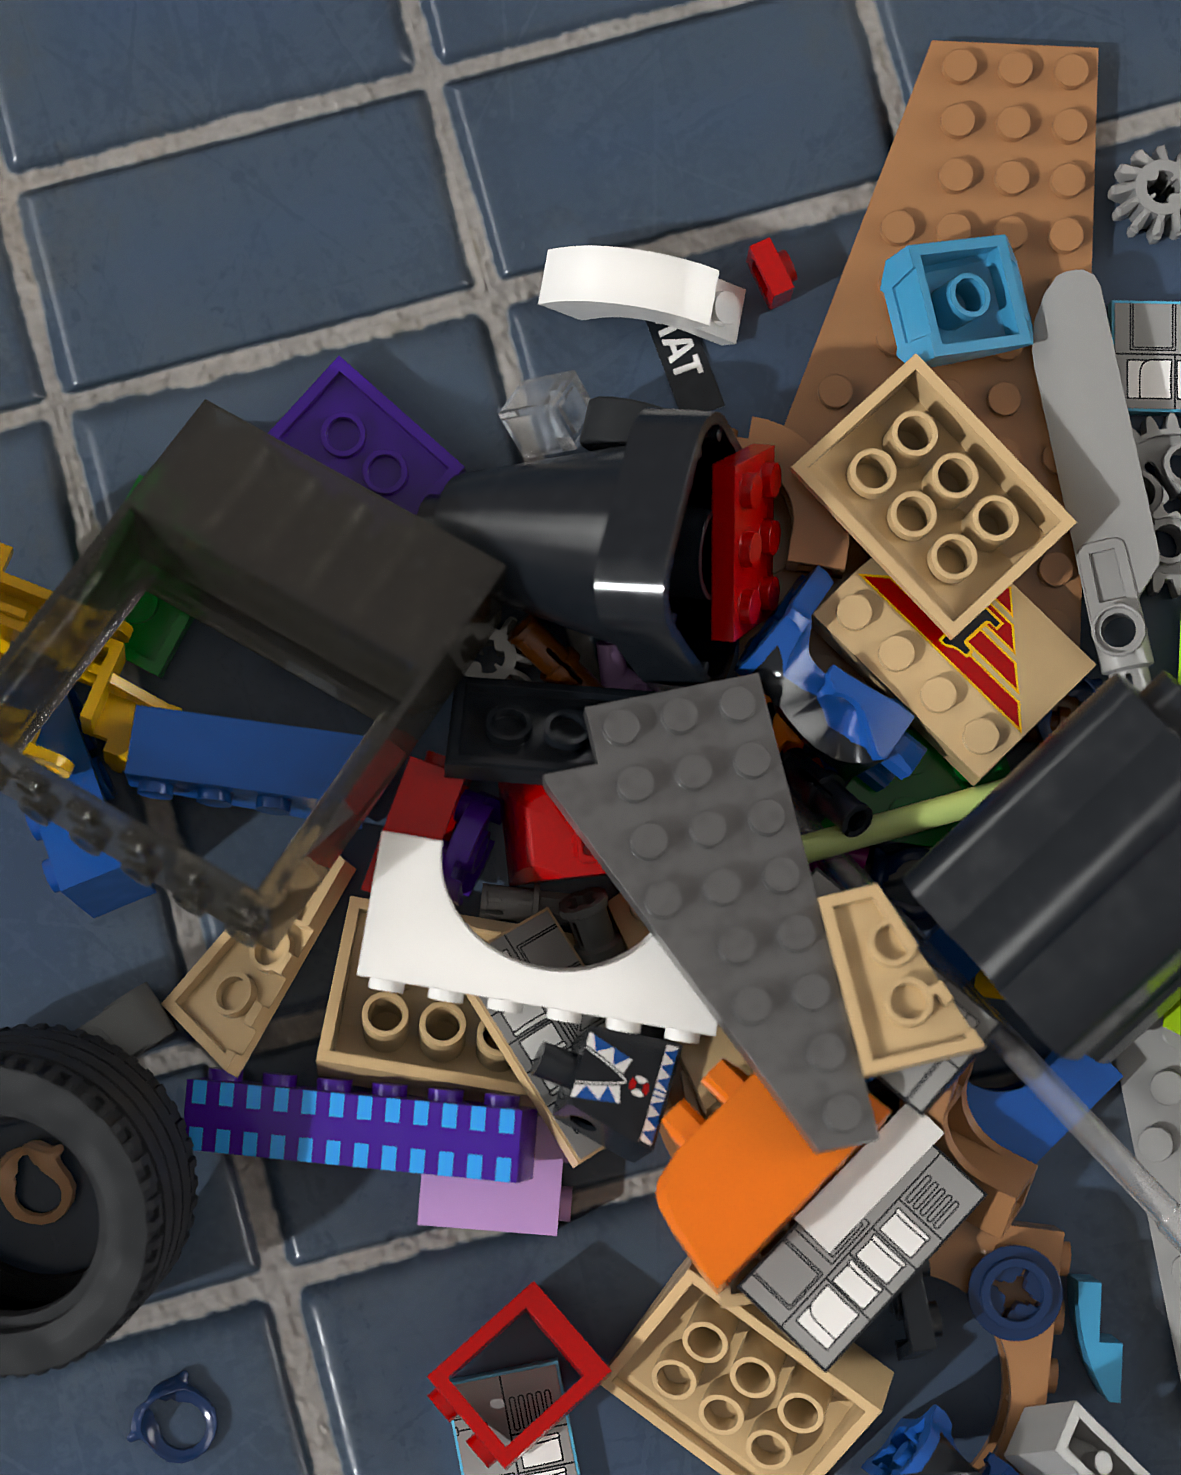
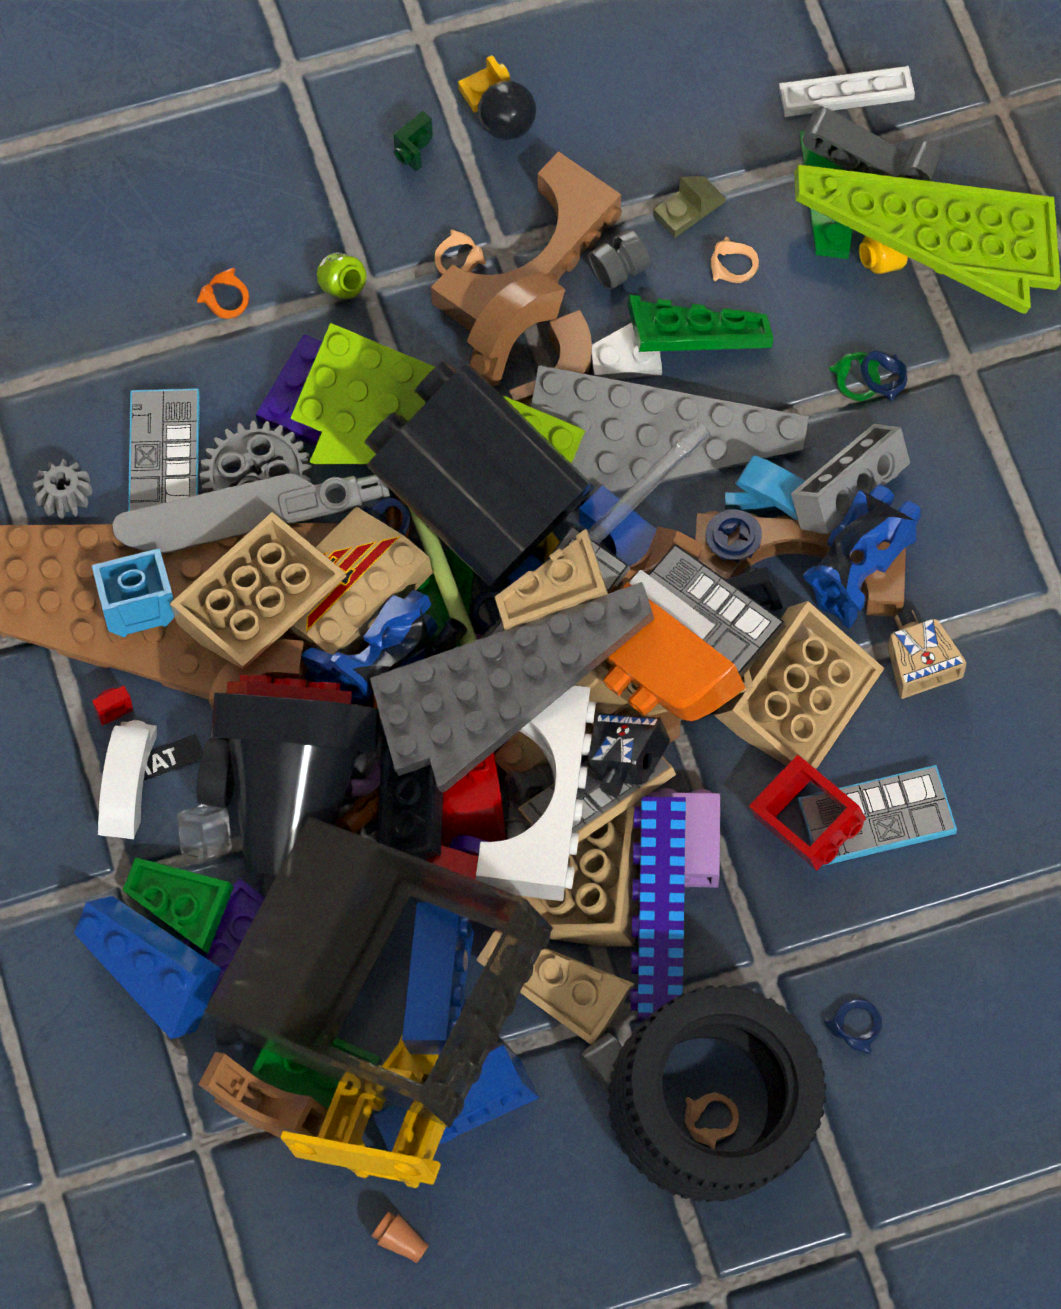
camera: 90 degrees left, 20 degrees down
(105, 470) = (259, 1102): none -> medium nougat arch
(325, 322) = (150, 964): none -> blue wedge
(432, 375) = (180, 899): none -> green wing
(1107, 1364) = (770, 483): none -> dark azure slope

